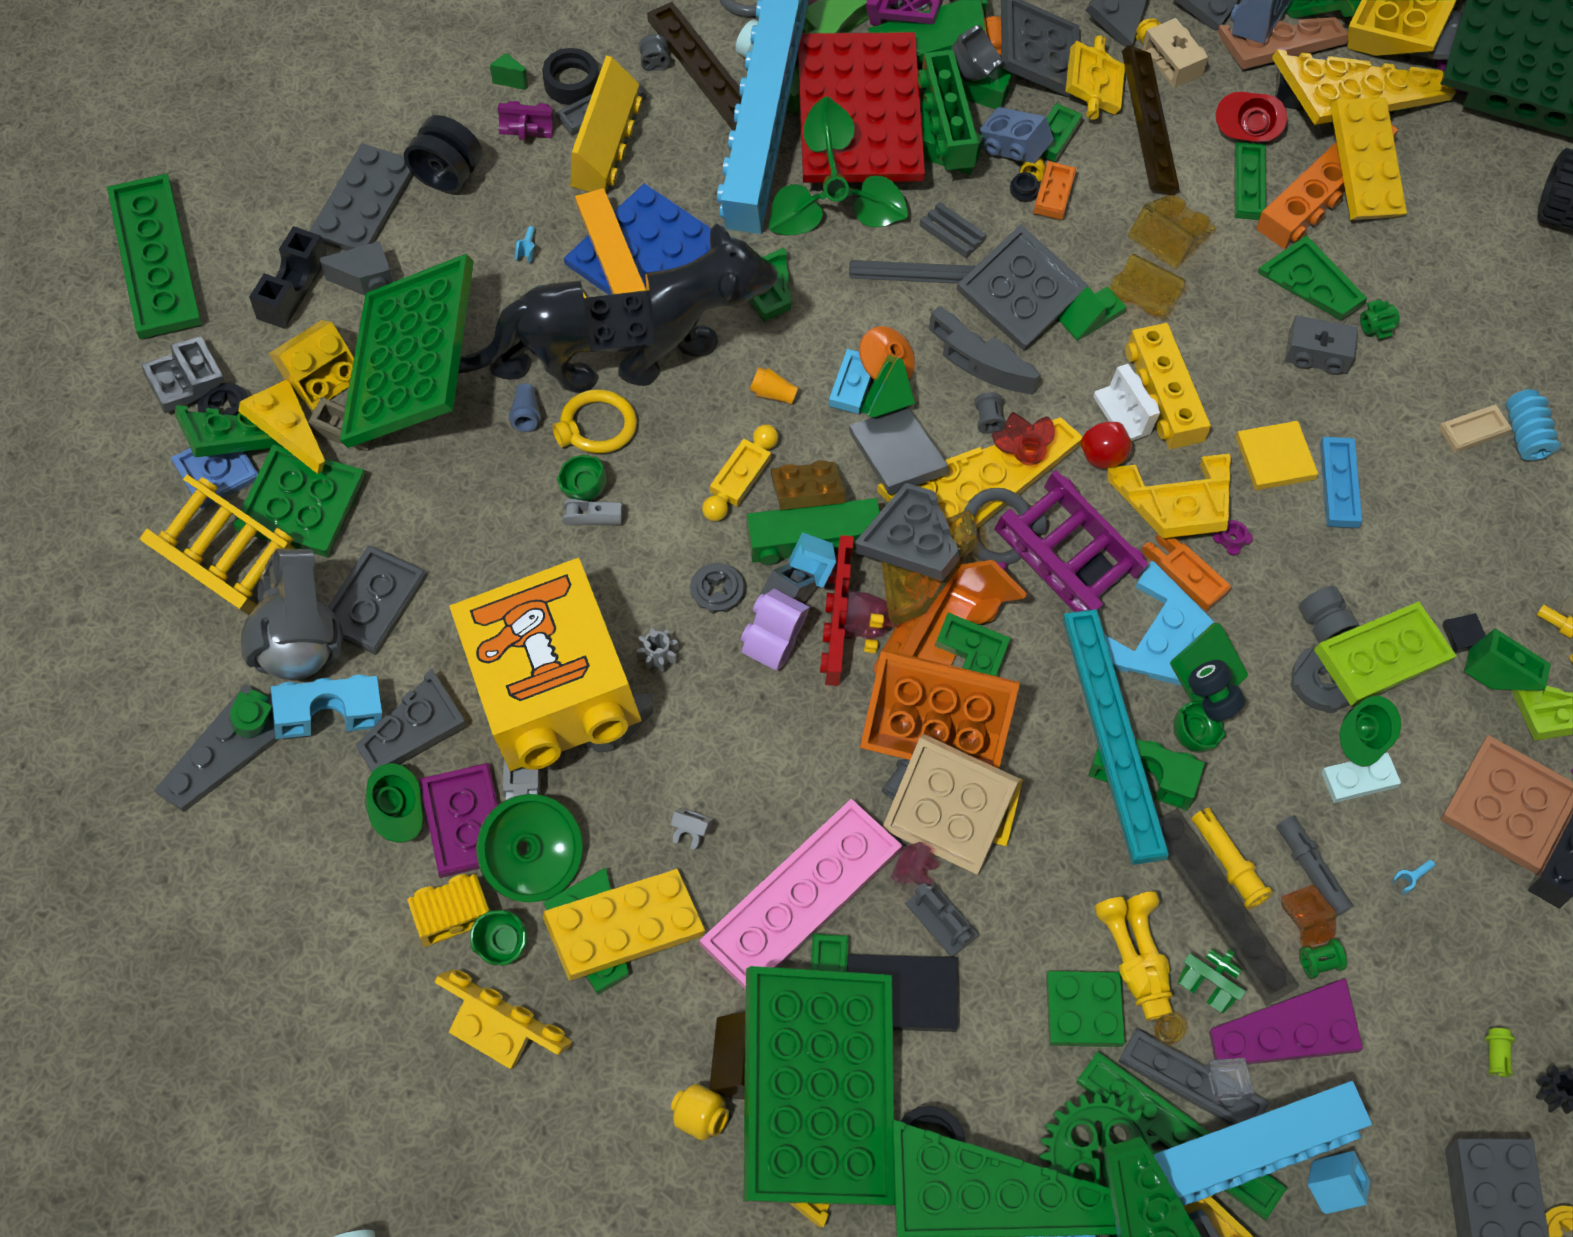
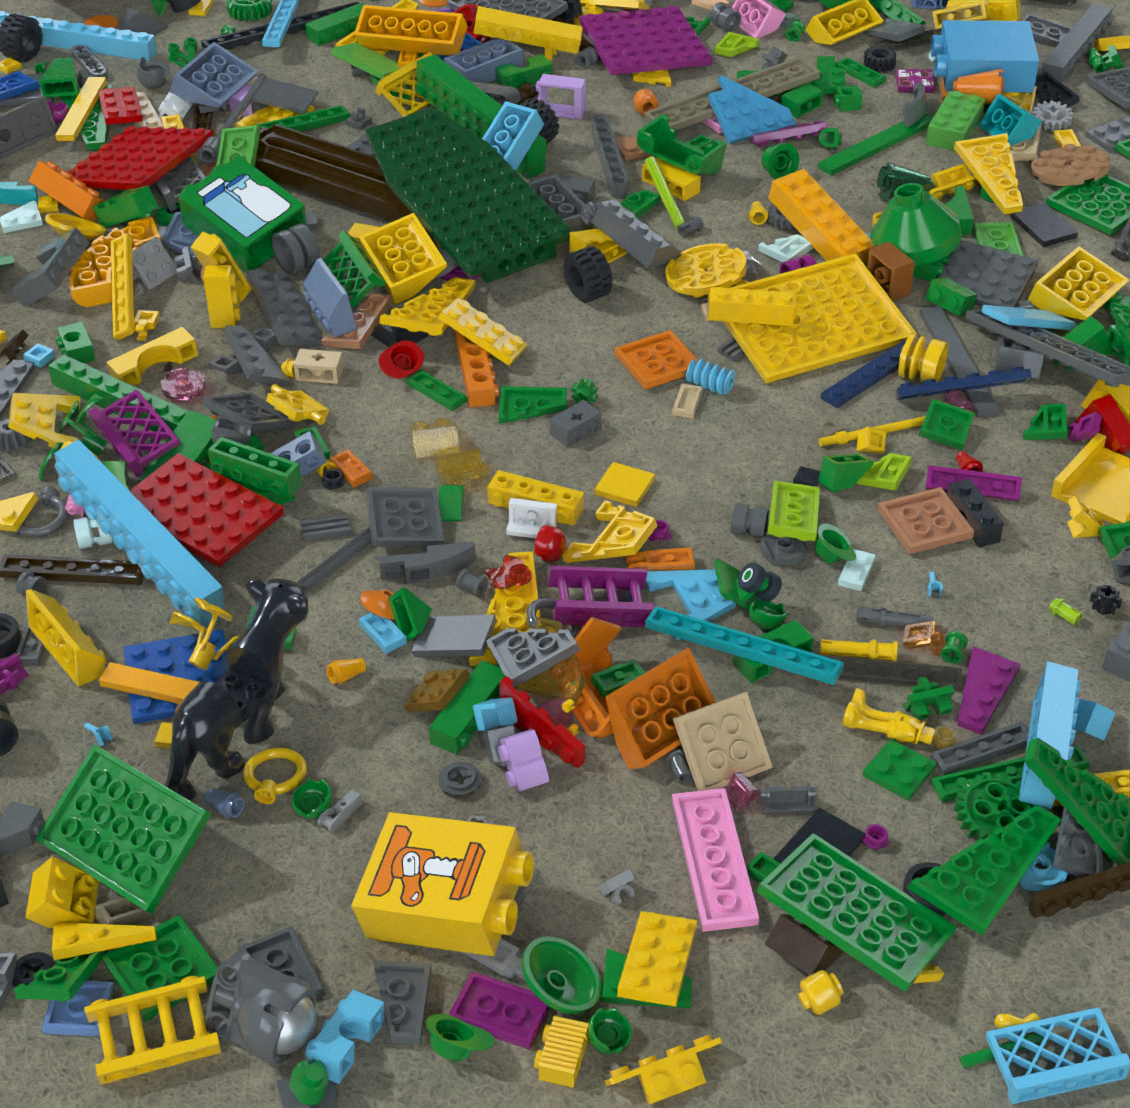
camera: 50 degrees left, 20 degrees down
(697, 221) = (204, 650): none -> yellow plant
(740, 472) = (390, 721): yellow plate -> none
(793, 207) = (269, 542): green plant -> none
(963, 1033) = (876, 831): none -> magenta plate
(1150, 121) = (351, 402): dark brown tile -> none
(1230, 1079) = (996, 727): clear tile -> none
(1340, 482) = (669, 468): dark azure plate -> none
(1511, 351) = (655, 359): none -> orange plate

